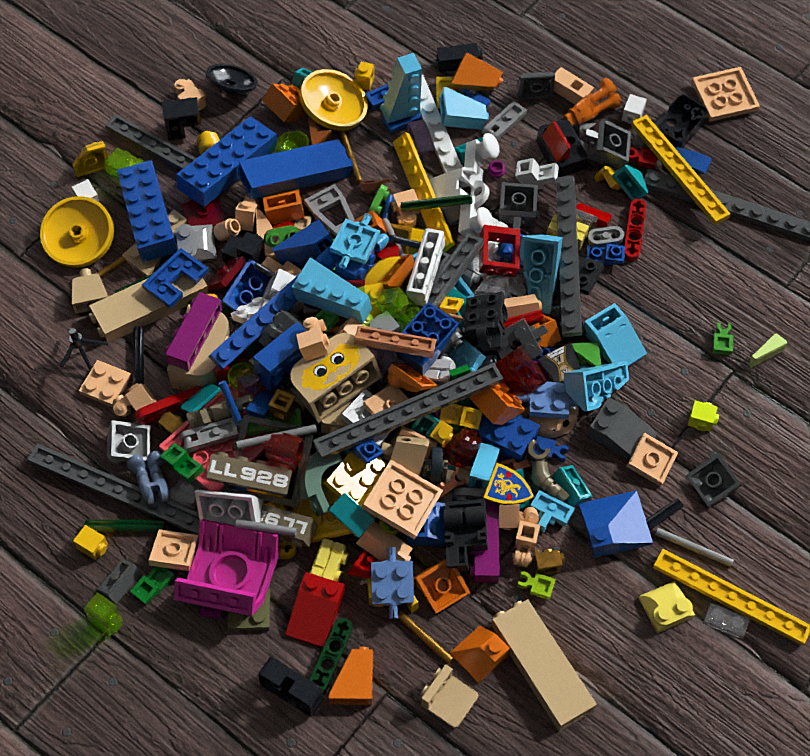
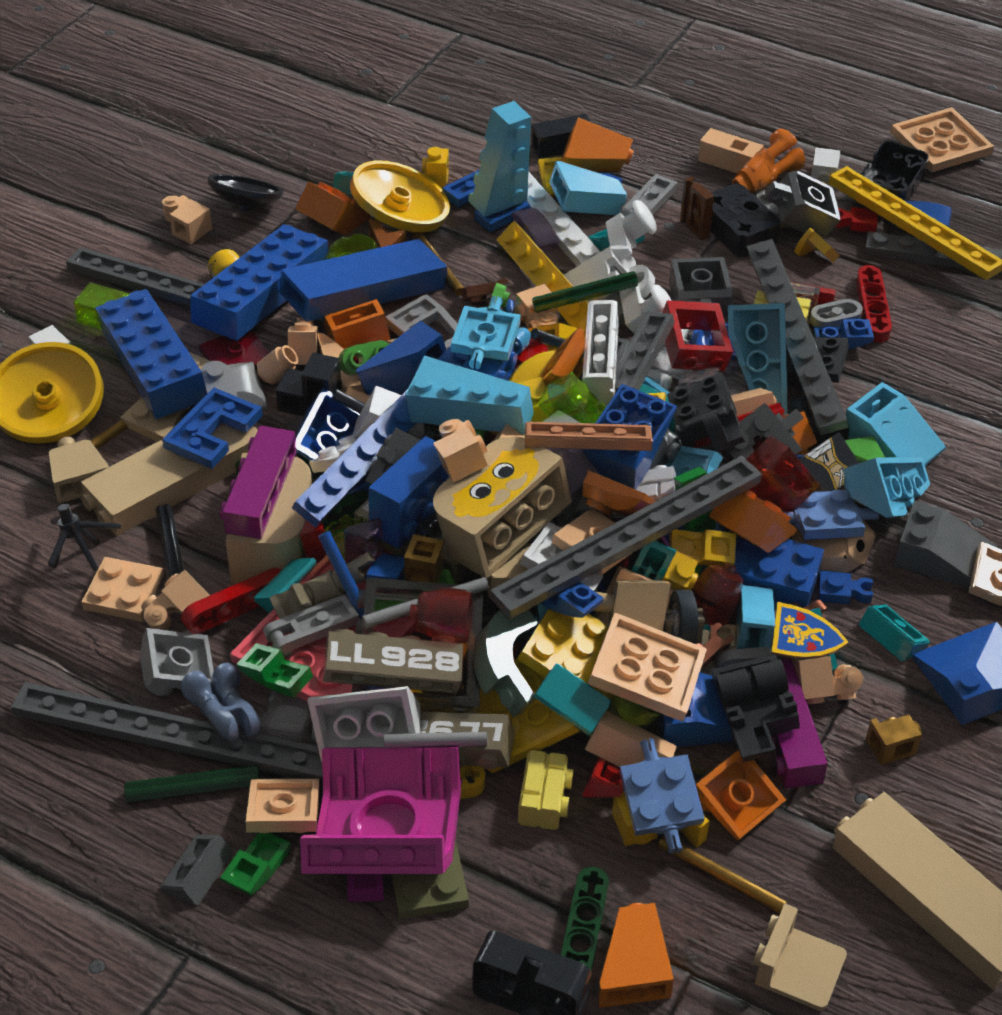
camera: 10 degrees left, 15 degrees down
(90, 159) = (52, 302): yellow slope -> none
(91, 542) = (139, 815): yellow brick -> none
(103, 614) = (182, 916): clear neon green brick -> none
(169, 423) = (238, 625): pearl gold brick -> none
(180, 114) = (176, 232): black brick -> none
(226, 273) = (291, 414): dark red plate -> none
(315, 609) = (540, 861): red slope -> none
(480, 653) = (831, 886): orange slope -> none
(496, 169) = (654, 254): magenta plate -> none
(525, 543) = (852, 713): light nougat brick -> none
(531, 173) = (704, 245): white brick -> none
(533, 136) = (697, 208): none -> reddish brown plate
(535, 85) = (682, 152): dark grey slope -> none
(540, 585) = (893, 773): lime plate -> none
(541, 476) = (843, 617): dark tan piece -> none
(551, 510) = (876, 667): medium azure hinge -> none
(556, 142) = (735, 206): red slope -> none
(631, 182) = (850, 244): teal slope -> none

